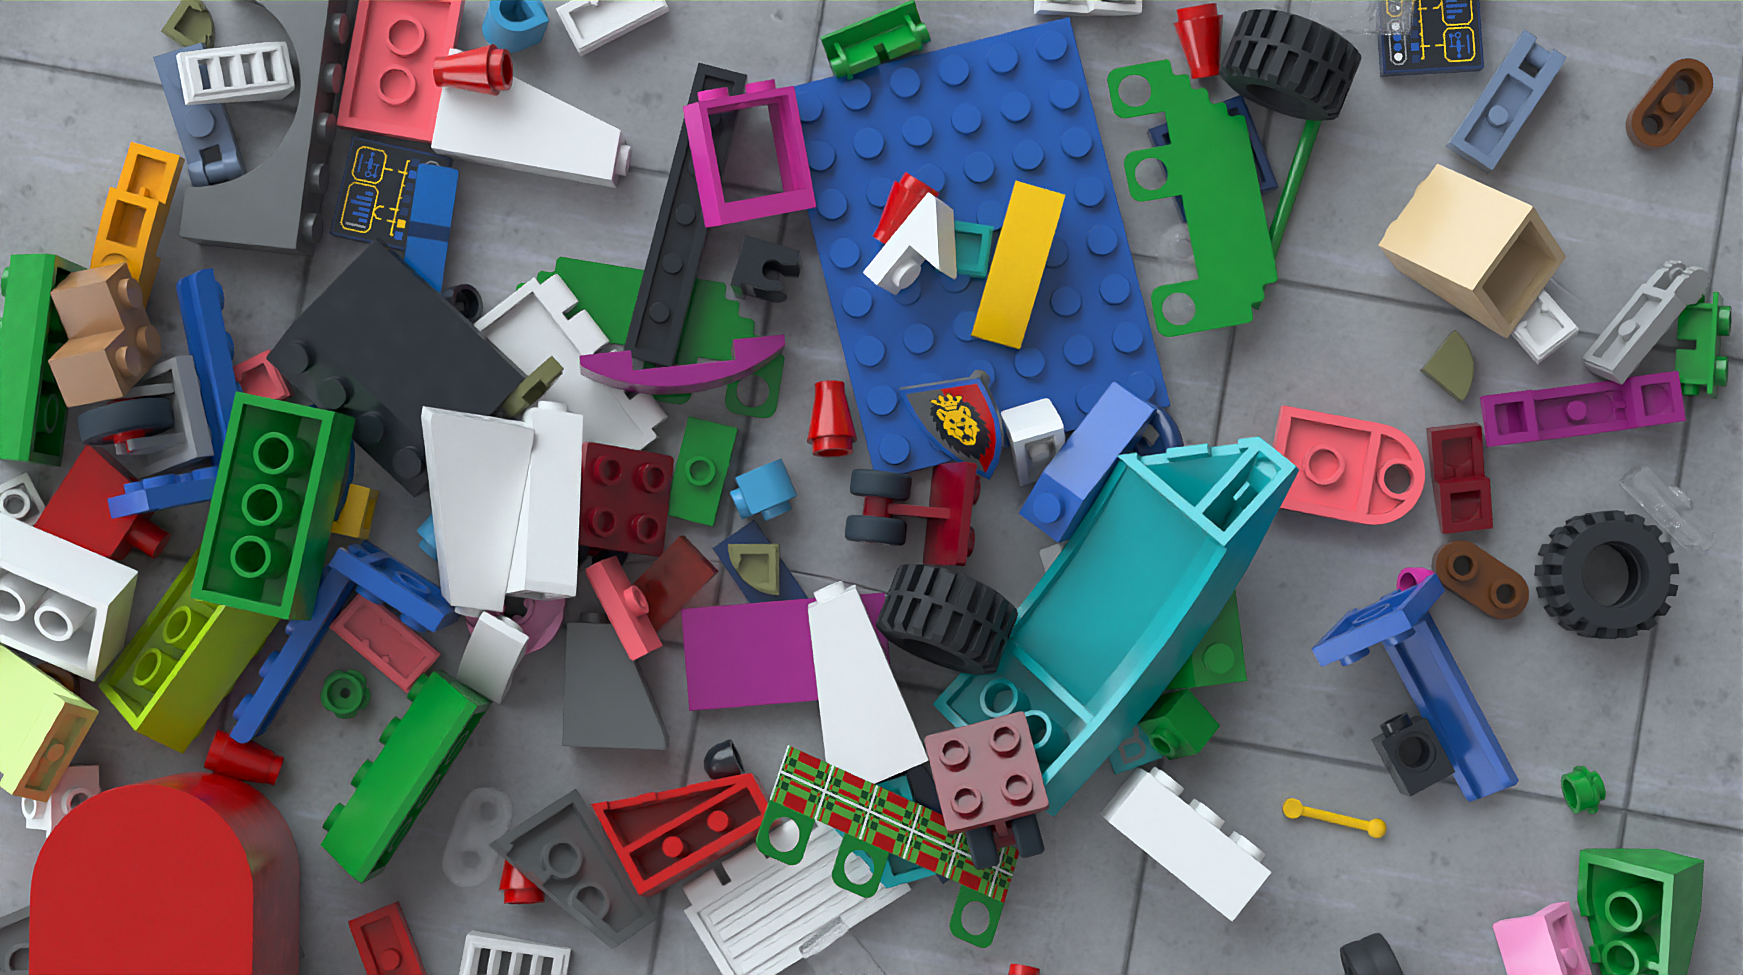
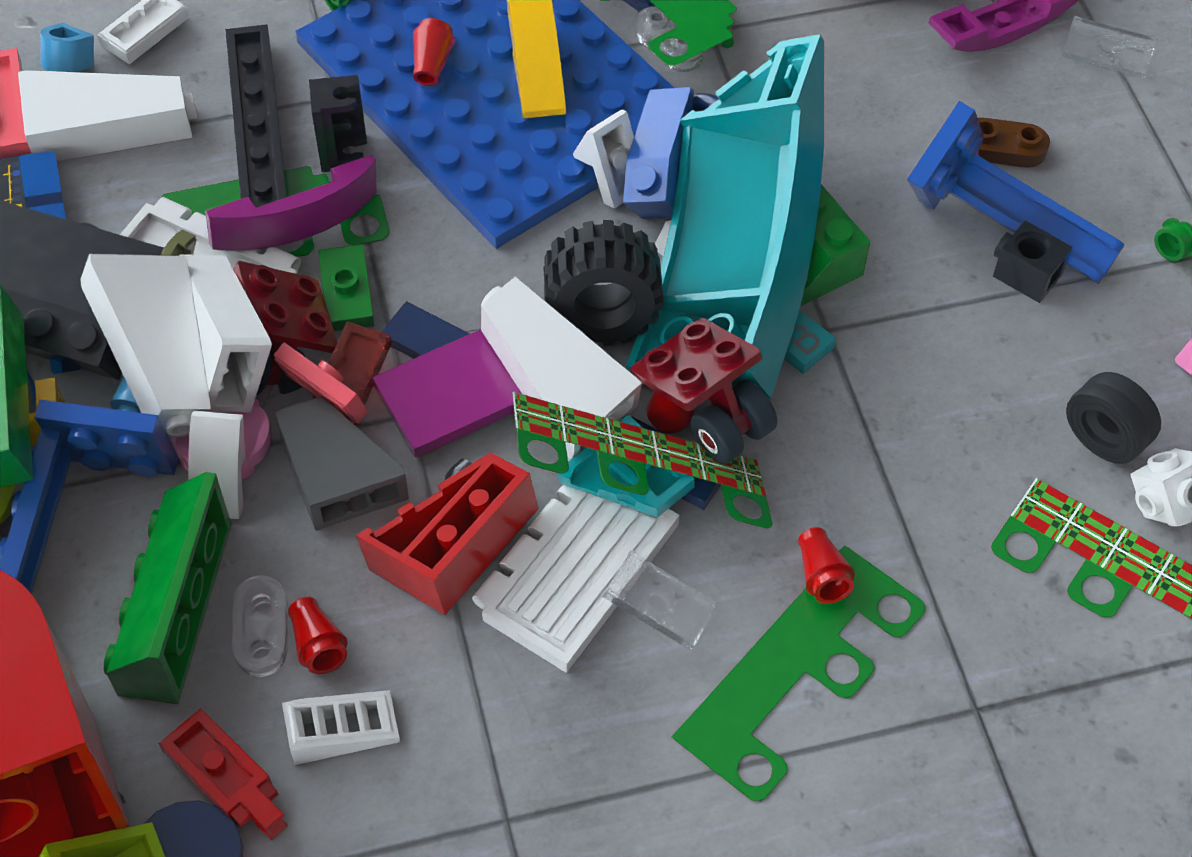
camera: 25 degrees left, 30 degrees down
(333, 686) = (83, 549): green plate -> none
(385, 641) = (107, 500): coral plate -> none
(476, 70) = (44, 66): cone -> none
(577, 868) = (366, 608): dark grey wing -> none
(757, 565) = (423, 325): olive tile -> none
(764, 491) = (404, 274): dark azure plate -> none
(789, 147) = (293, 22): dark pink window -> none
(831, 422) = (441, 216): red cone -> none
(923, 235) = (446, 62): white slope -> none
(948, 528) = (513, 249): dark red plate -> none
(960, 419) = (543, 152): shield -> none
(972, 248) = (489, 64): teal tile -> none
(1178, 725) = (834, 303): green plate -> none
(1187, 840) = (891, 373): white brick -> none
(1293, 809) = (962, 341): yellow hinge -> none
(1345, 466) = (862, 108): coral plate -> none
(1451, 366) = (896, 27): olive tile -> none
(1459, 478) = (943, 84): dark red slope -> none
(1646, 565) = (1094, 94): black tyre -> none

